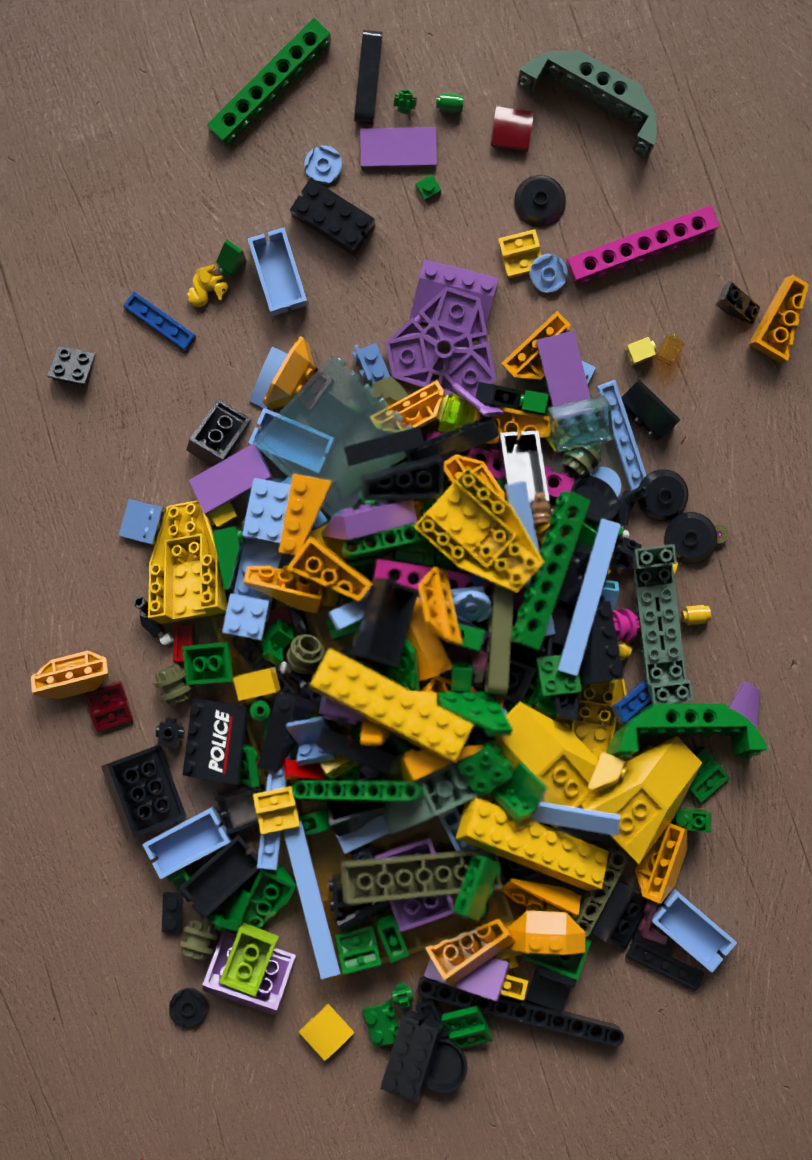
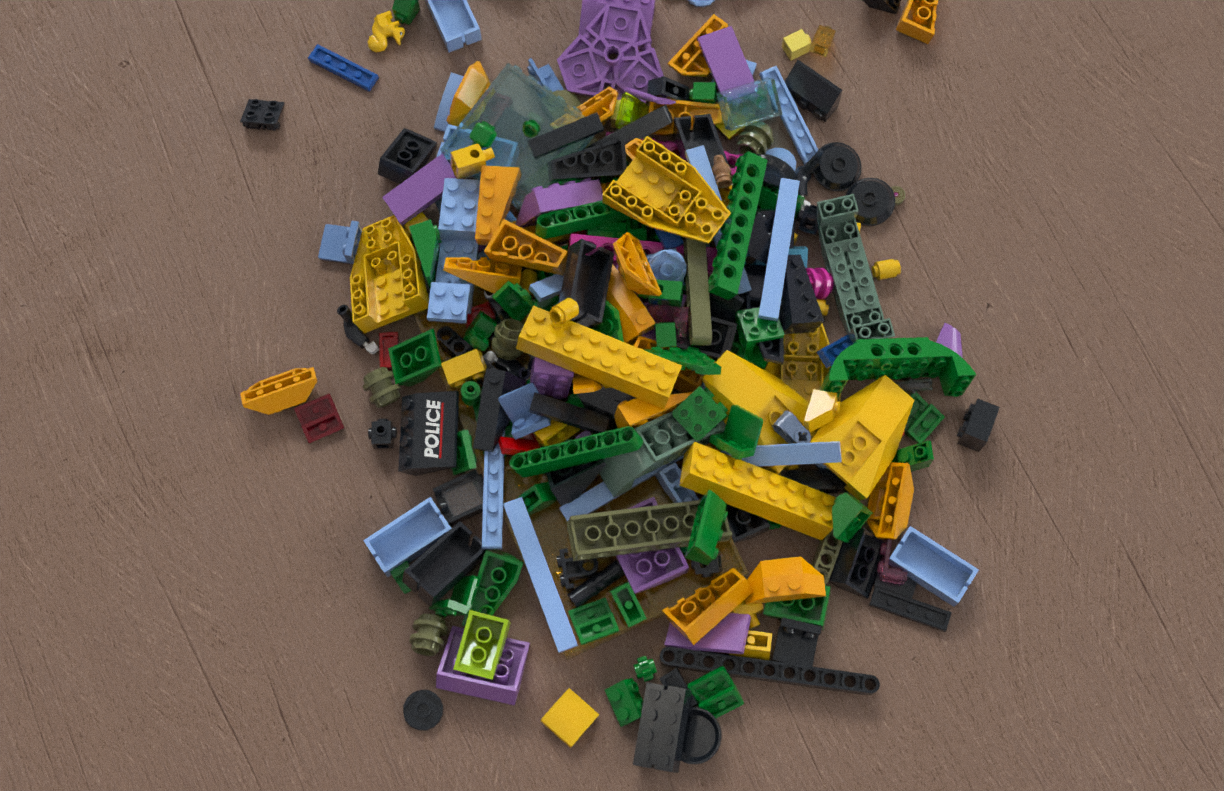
camera: 10 degrees left, 15 degrees down
(143, 791) = (359, 494): black slope -> none
(172, 912) = (398, 613): black plate -> none
(273, 466) = (469, 160): none -> yellow torso
(276, 810) = (496, 487): yellow slope -> none
(297, 435) = (483, 134): none -> green head
(314, 621) = (515, 300): none -> green bracket
(348, 434) = (531, 132): none -> green plate
(360, 662) = (564, 311): none -> yellow brick
(543, 897) = (770, 546): light orange wedge -> none
(573, 789) = (791, 429): none -> sand blue piece
(619, 877) = (848, 516): none -> green slope
(703, 744) = (915, 385): none -> dark grey pin
(760, 794) = (978, 425): none -> black brick

